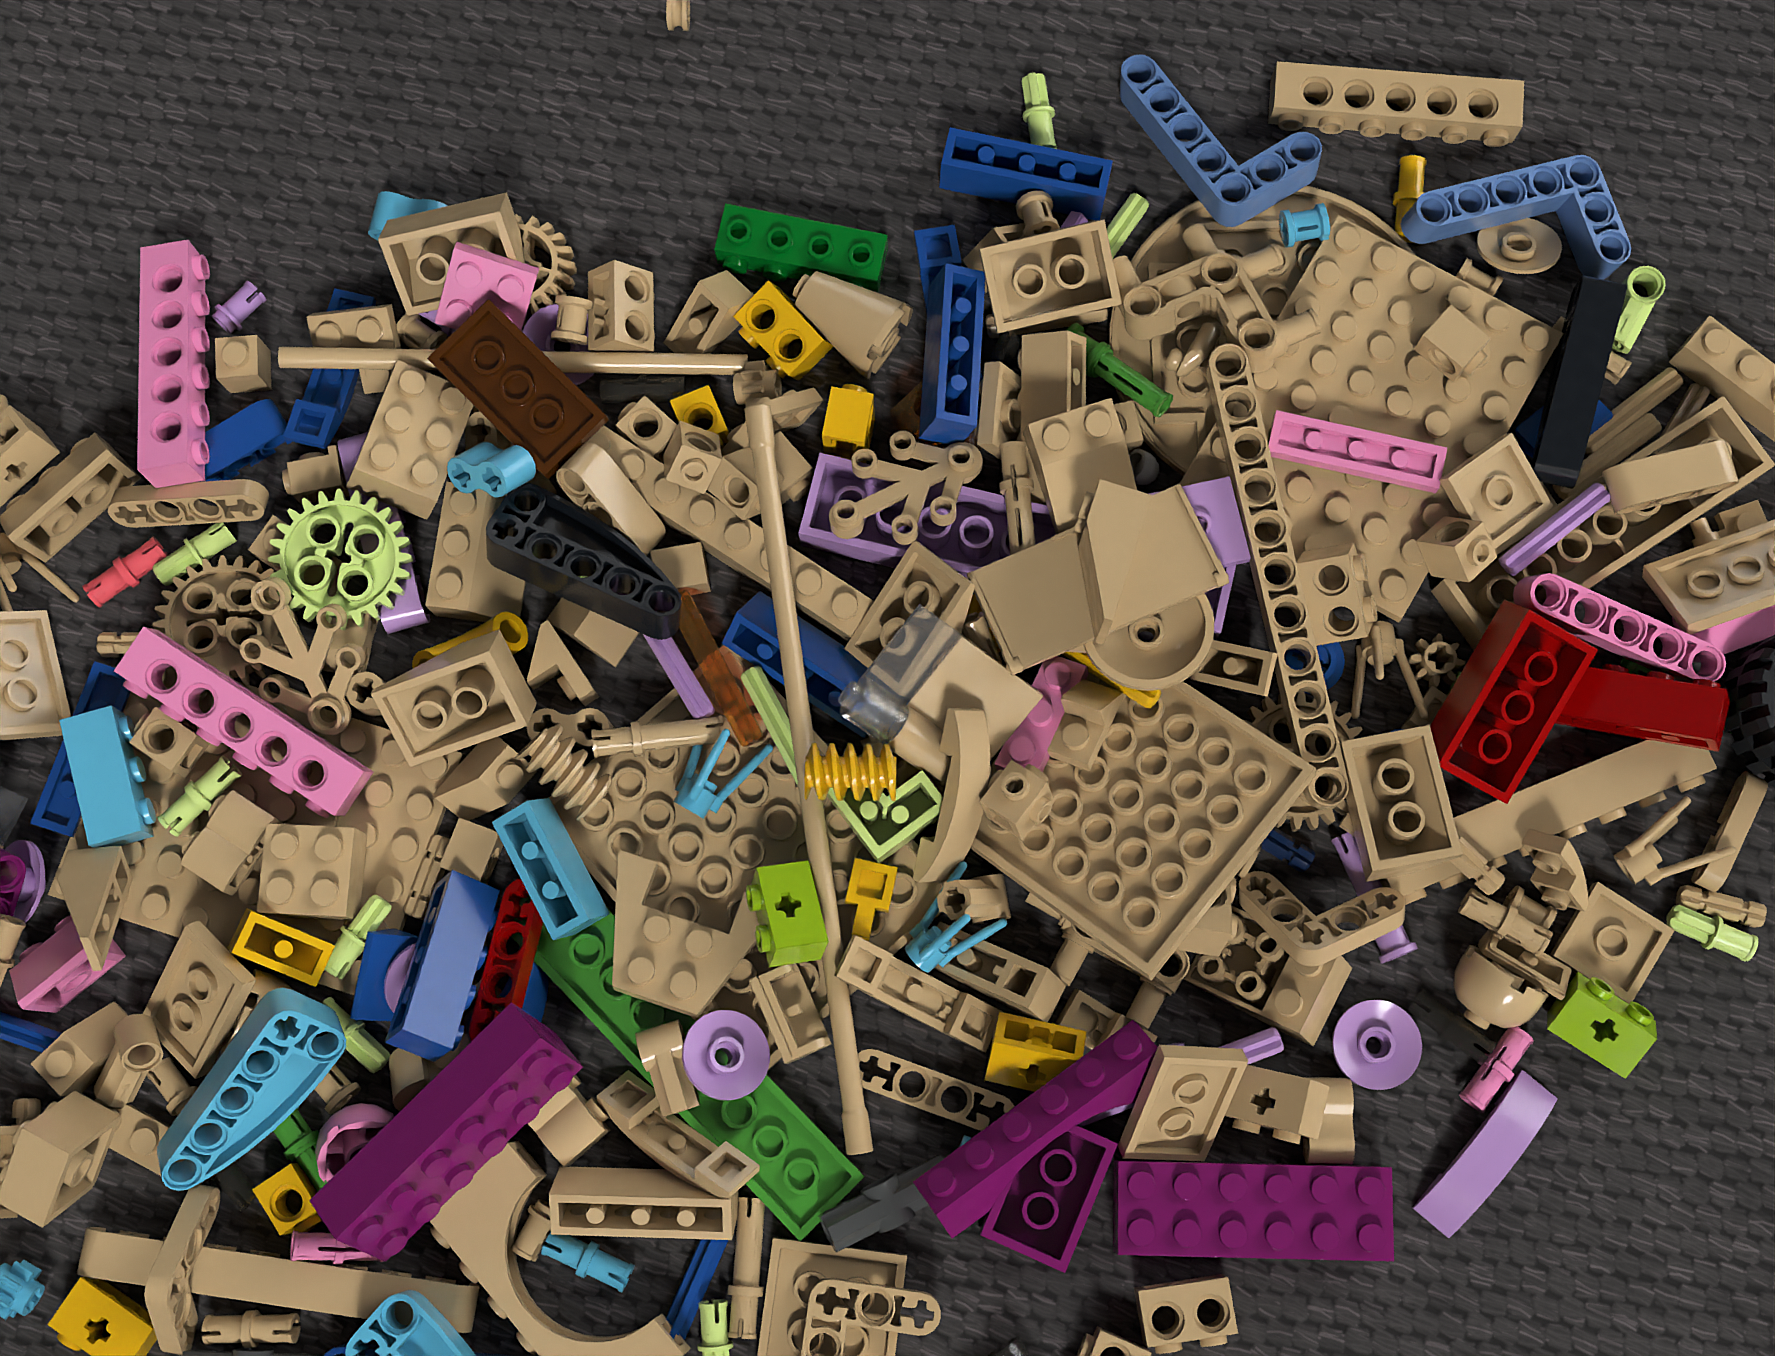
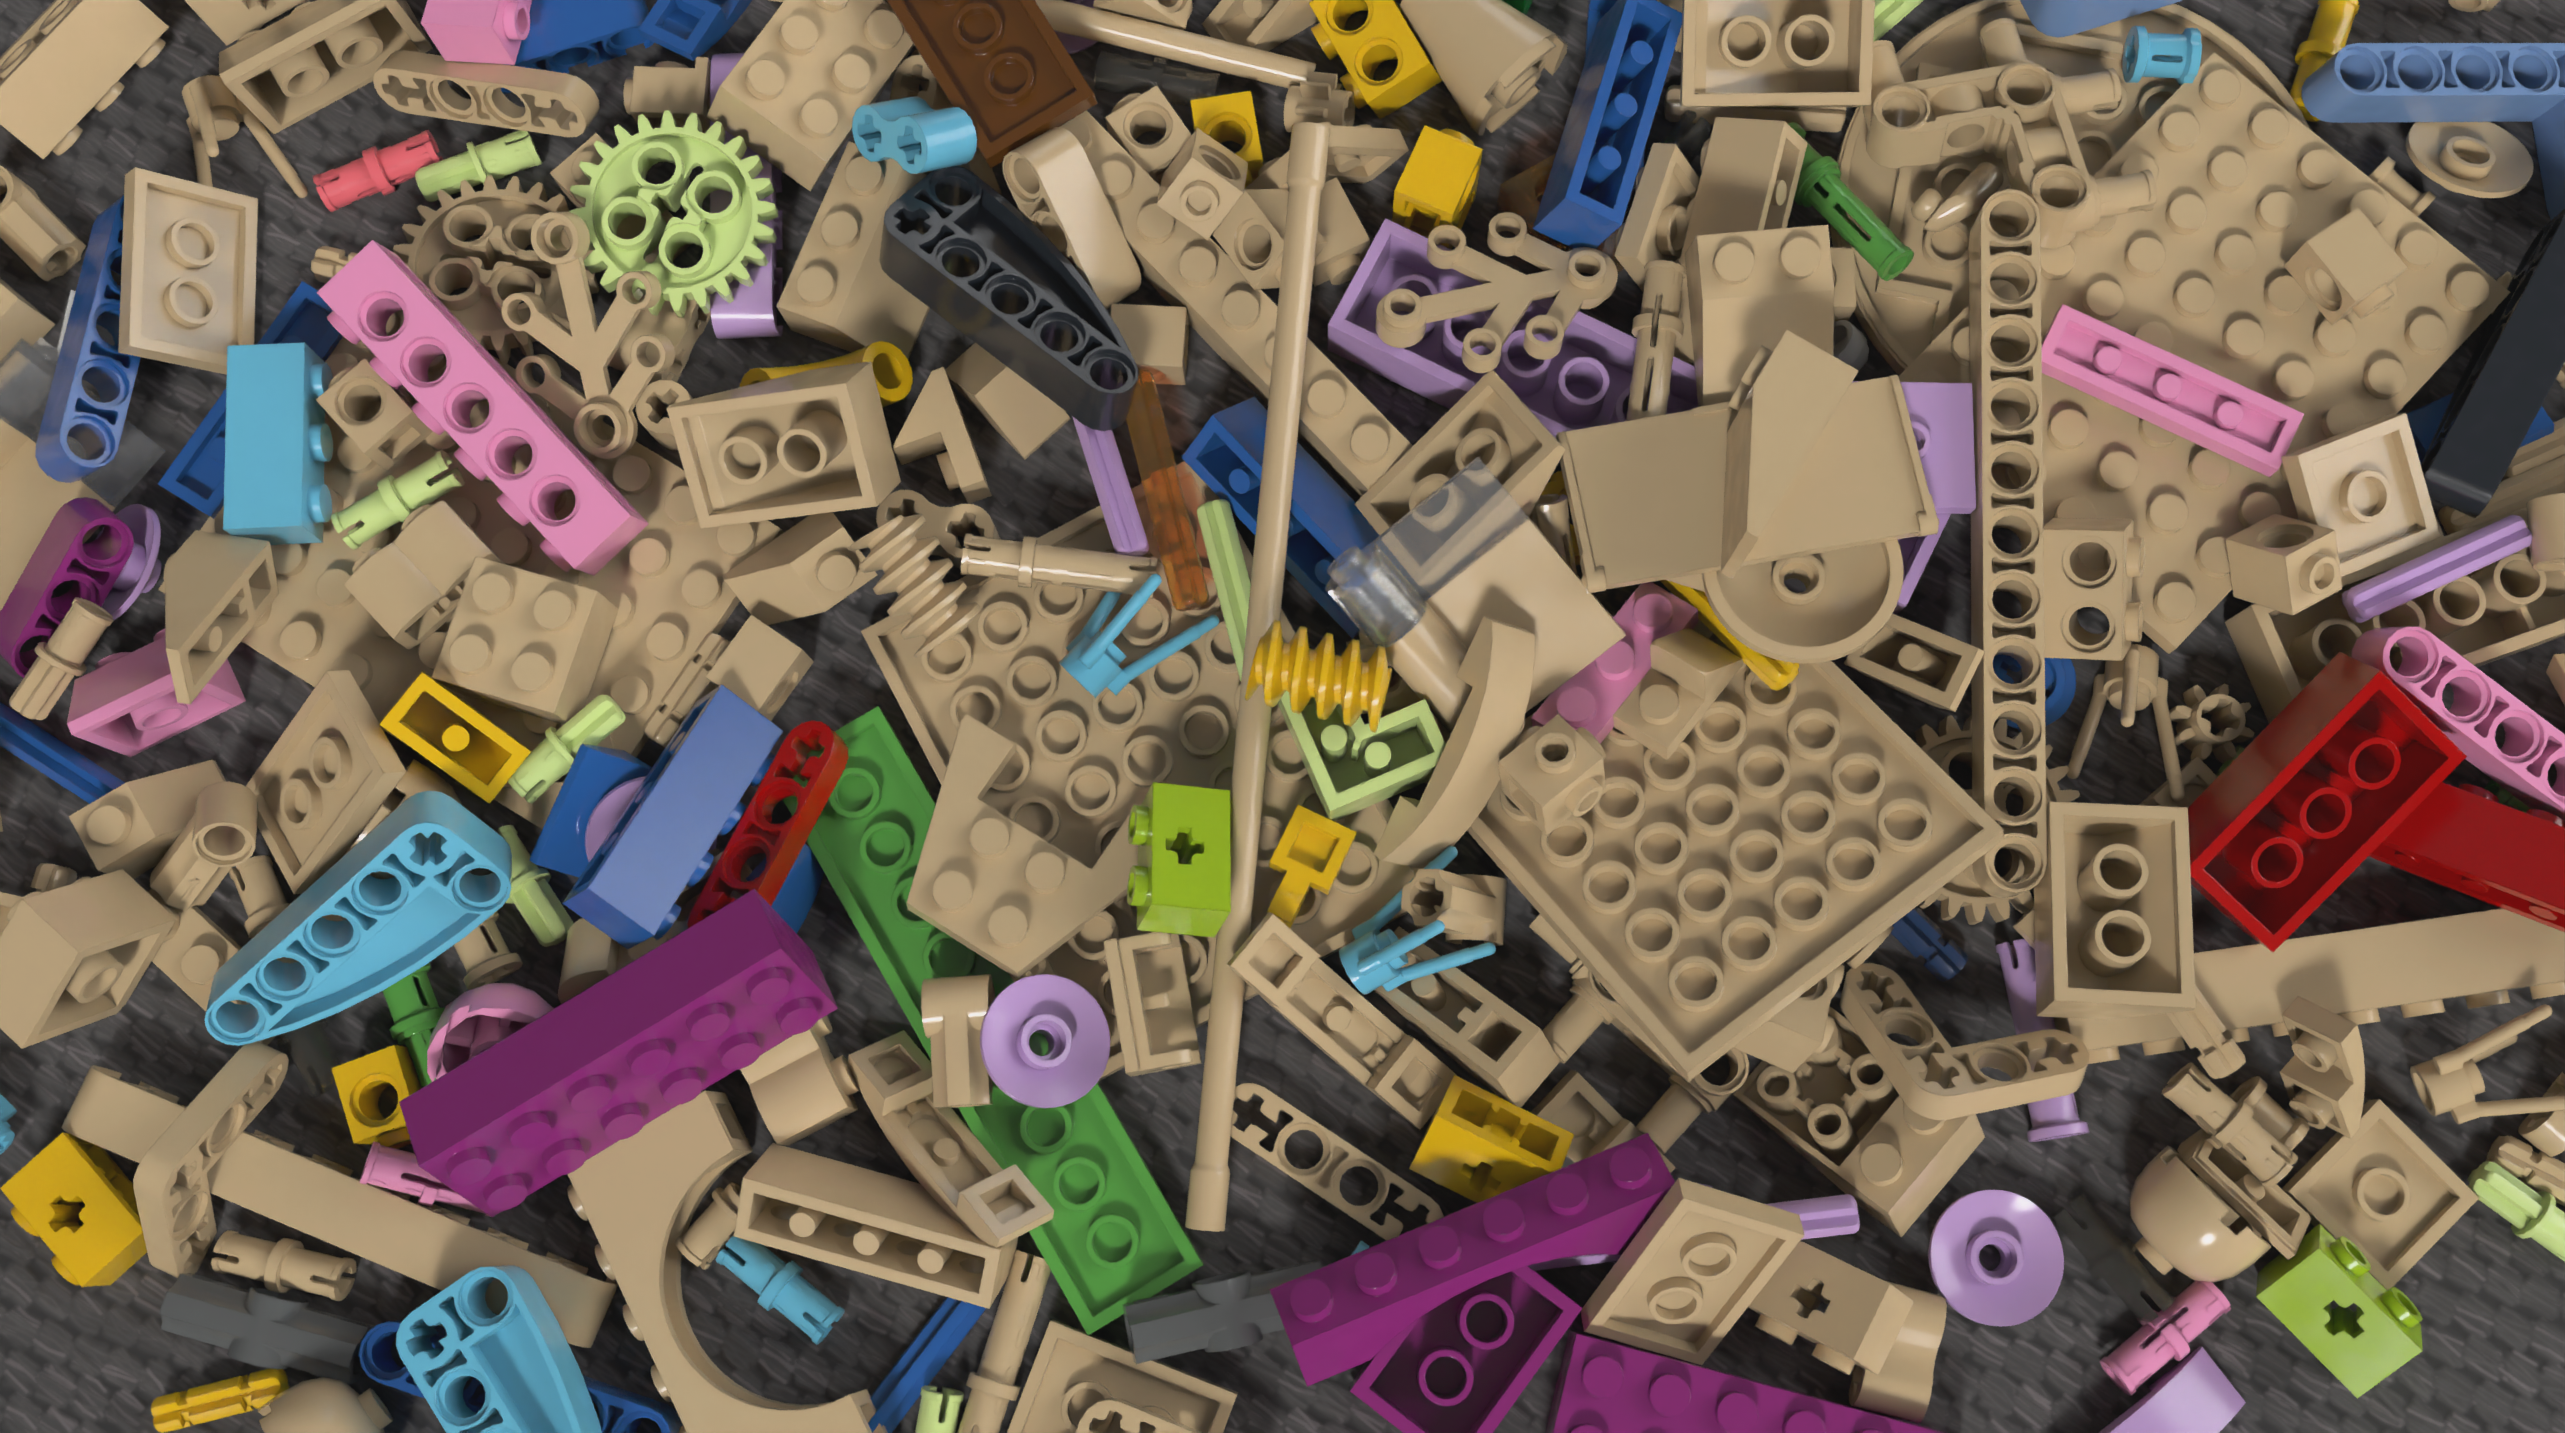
camera: 15 degrees right, 0 degrees up
(550, 868) = (860, 714): medium azure brick -> none

